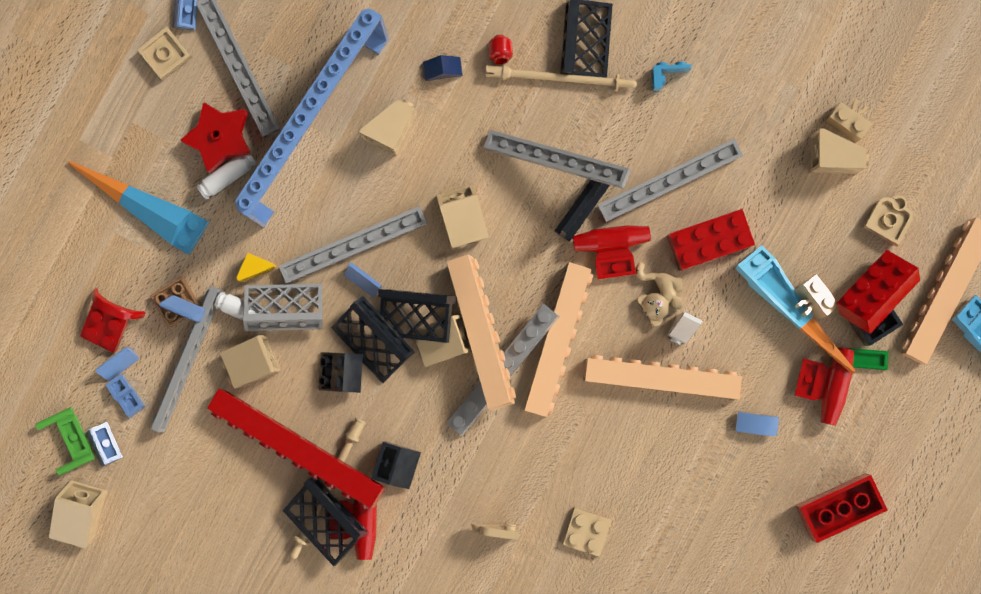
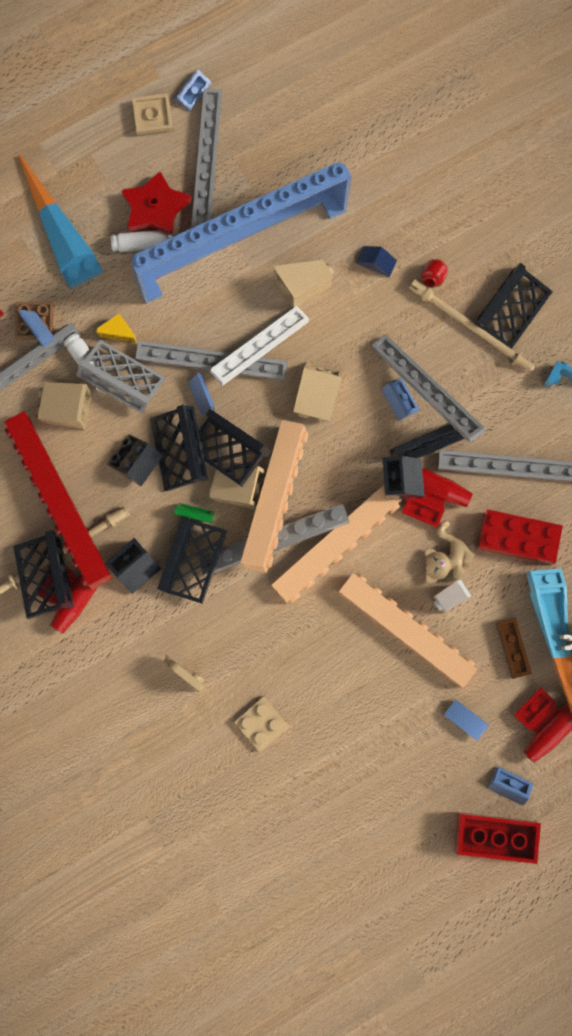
camera: 25 degrees right, 5 degrees down
(387, 207) = (259, 345): none -> white plate
(420, 387) = (194, 512): none -> green tile
(428, 435) = (176, 556): none -> black fence
(536, 179) = (400, 399): none -> medium blue slope
(582, 250) = (403, 478): none -> black slope
(761, 338) = (513, 648): none -> reddish brown plate
(826, 456) = (510, 786): none -> medium blue slope

